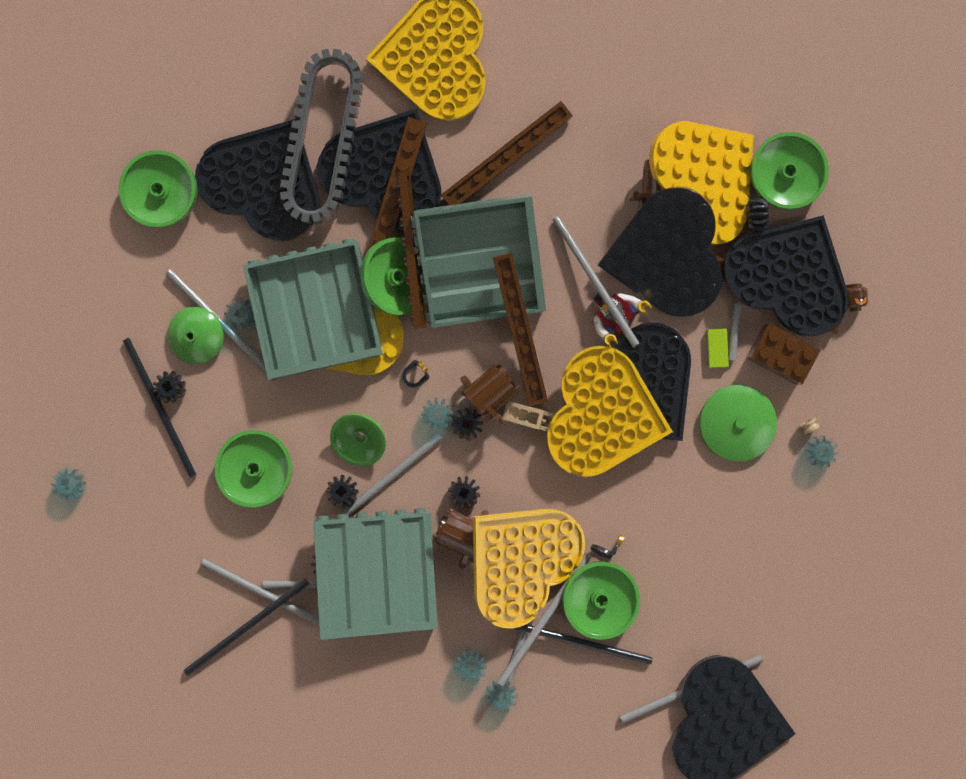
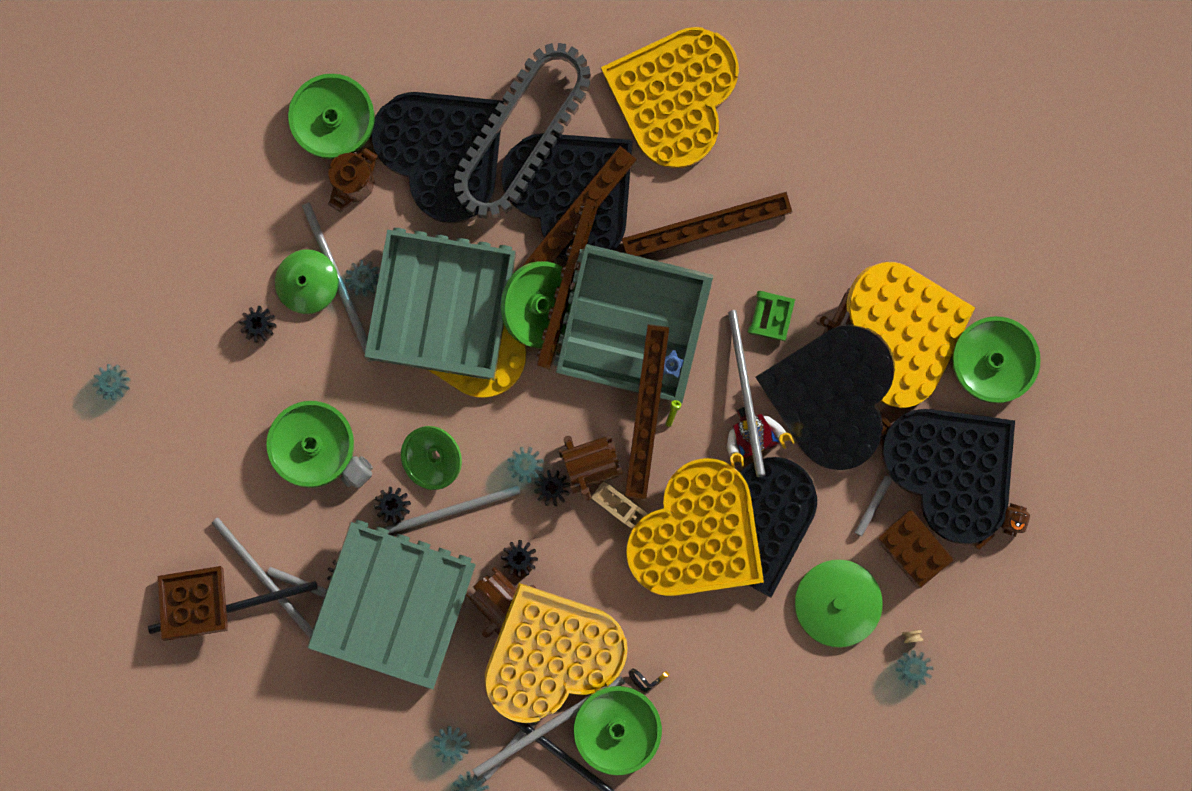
camera: 25 degrees right, 5 degrees down
(159, 407) = (238, 346): black piece -> none
(195, 234) = (351, 178): none -> reddish brown container
(211, 638) = (192, 603): none -> reddish brown plate
(302, 475) = (357, 472): none -> light grey head
(422, 380) = (528, 405): black piece -> none
(530, 282) = (675, 369): none -> medium blue plate
(541, 315) = (675, 406): none -> lime piece
(596, 209) = (778, 318): none -> bright green plate
(717, 348) = (848, 515): lime tile -> none
(757, 215) = (944, 392): black gear -> none

